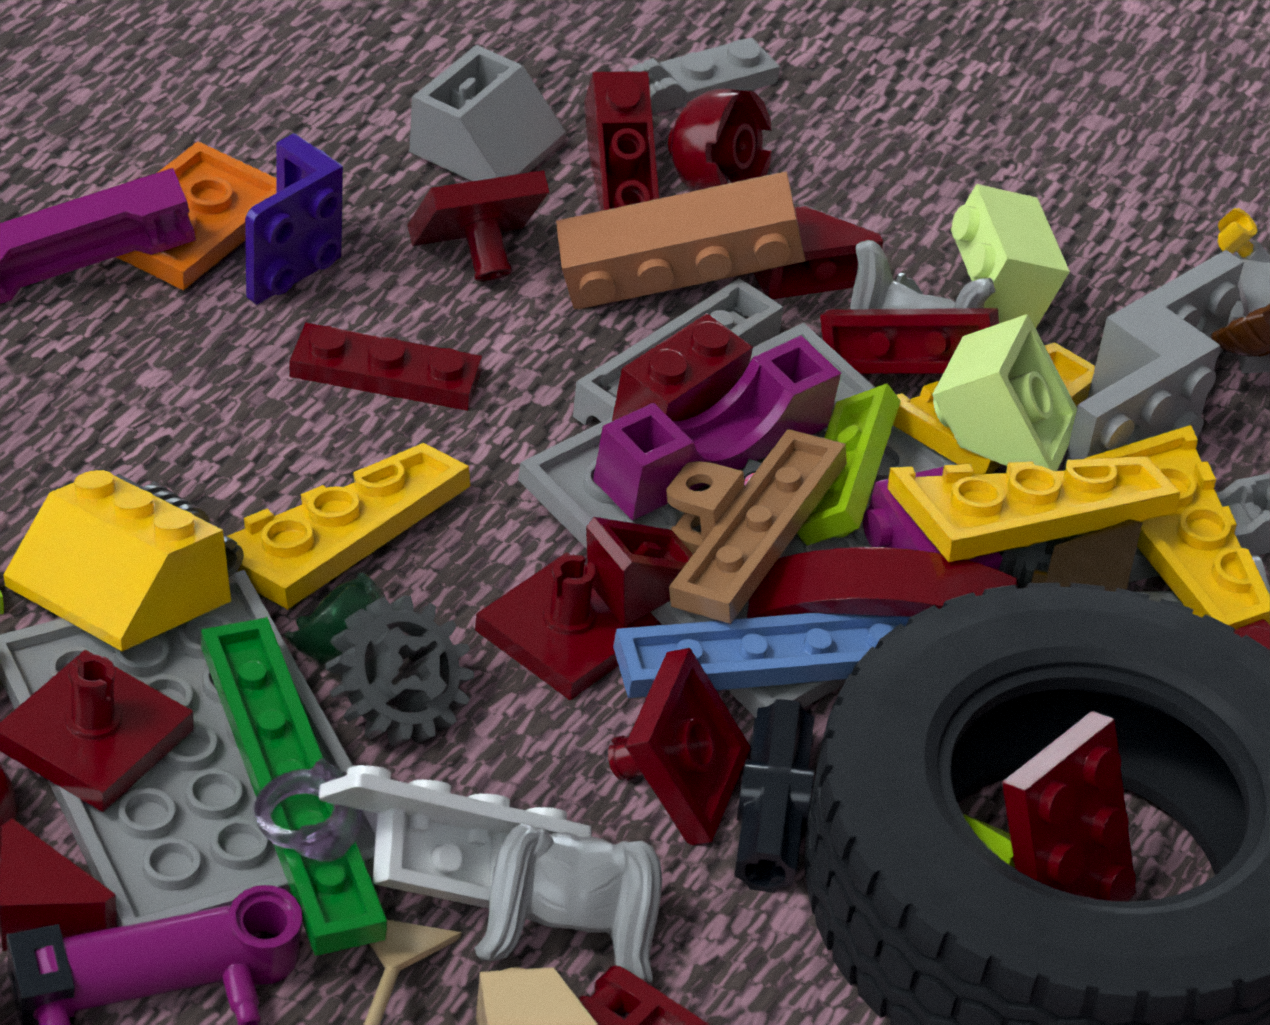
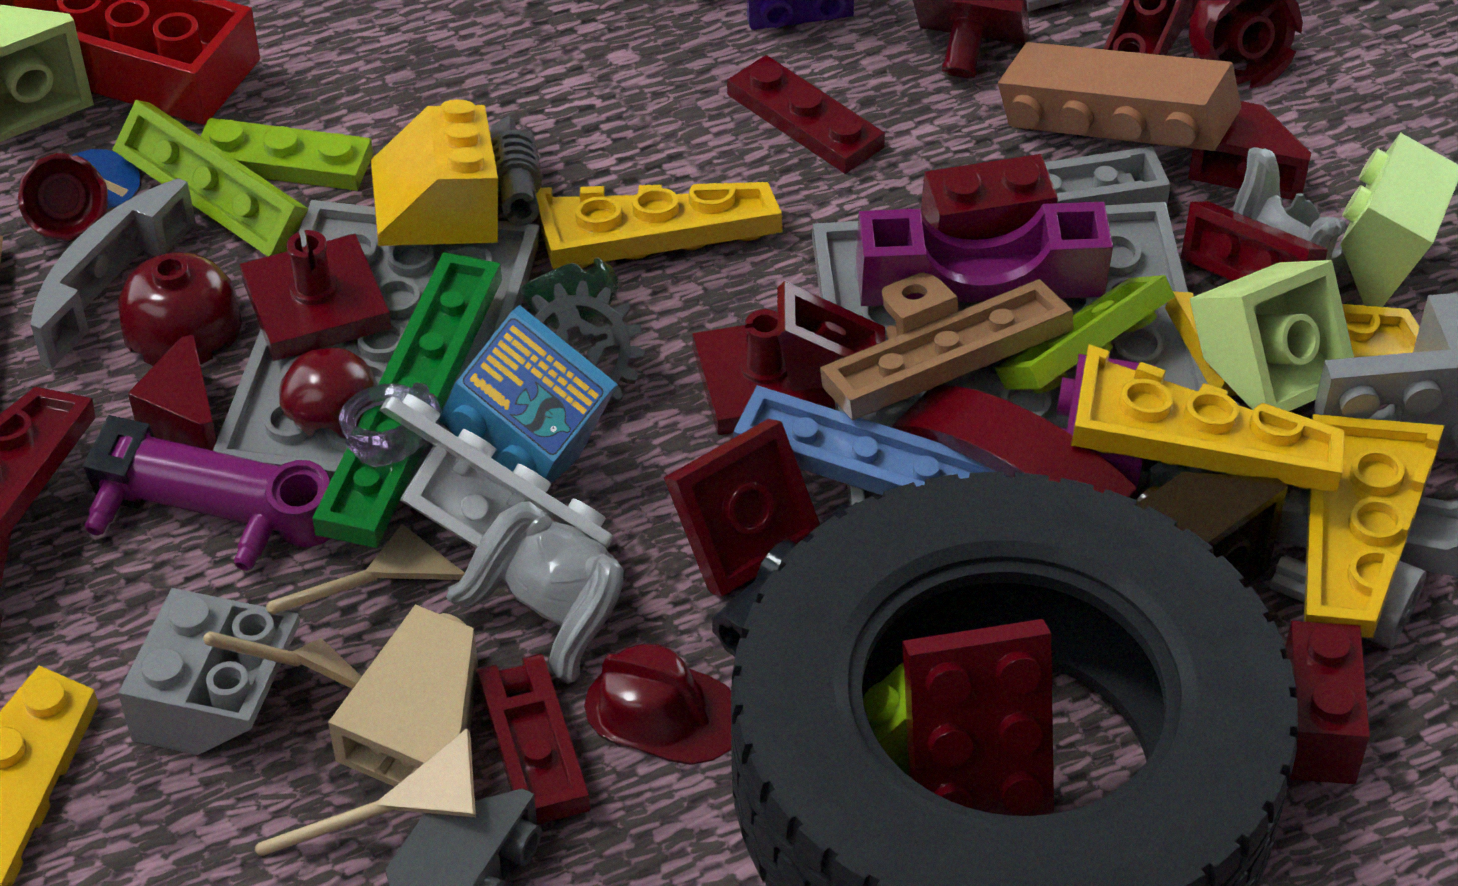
camera: 40 degrees right, 5 degrees up
(203, 813) = (320, 386): none -> dark red hair
(426, 719) = (529, 397): none -> slope
(745, 964) = (660, 706): none -> dark red piece

